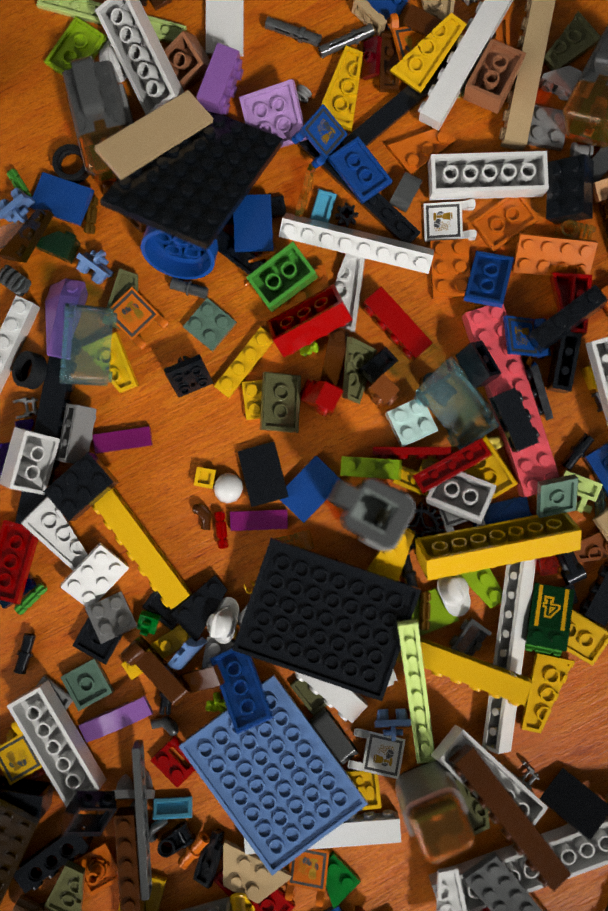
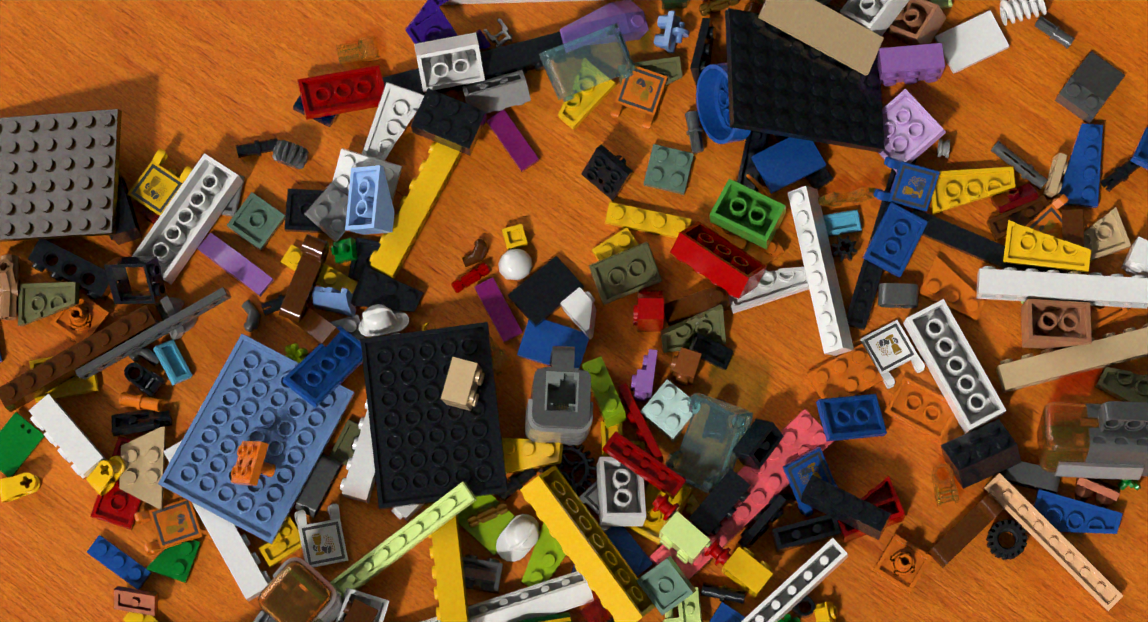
camera: 65 degrees right, 10 degrees down
(21, 367) = (540, 28): black tyre -> none
(30, 599) = (313, 128): bright green axle -> none
(43, 630) = (290, 154): none -> dark grey gear
(117, 585) = (369, 202): none -> light blue slope
(123, 245) = (703, 48): none -> black wing
(170, 764) = (213, 342): red plate -> none
(292, 31) = (1001, 118): dark grey pin -> none
(294, 453) = (581, 310): none -> white slope
(296, 795) = (251, 463): none -> orange plate
(307, 350) = (690, 274): lime plant -> none
(316, 587) = (462, 384): none -> tan brick
(380, 432) = (643, 381): none -> medium lavender plate
(396, 323) = (761, 350): red brick -> none
(401, 721) = (356, 538): medium blue hips -> none
(532, 463) = (685, 537): none -> yellowish green brick
(547, 128) = (1031, 401): light grey plate -> none
(550, 254) = (909, 471): orange plate -> none
(560, 81) = (1088, 390): light grey slope -> none
(574, 425) = (747, 571): none -> yellow brick
(578, 149) = (1029, 449): light grey bush -> none

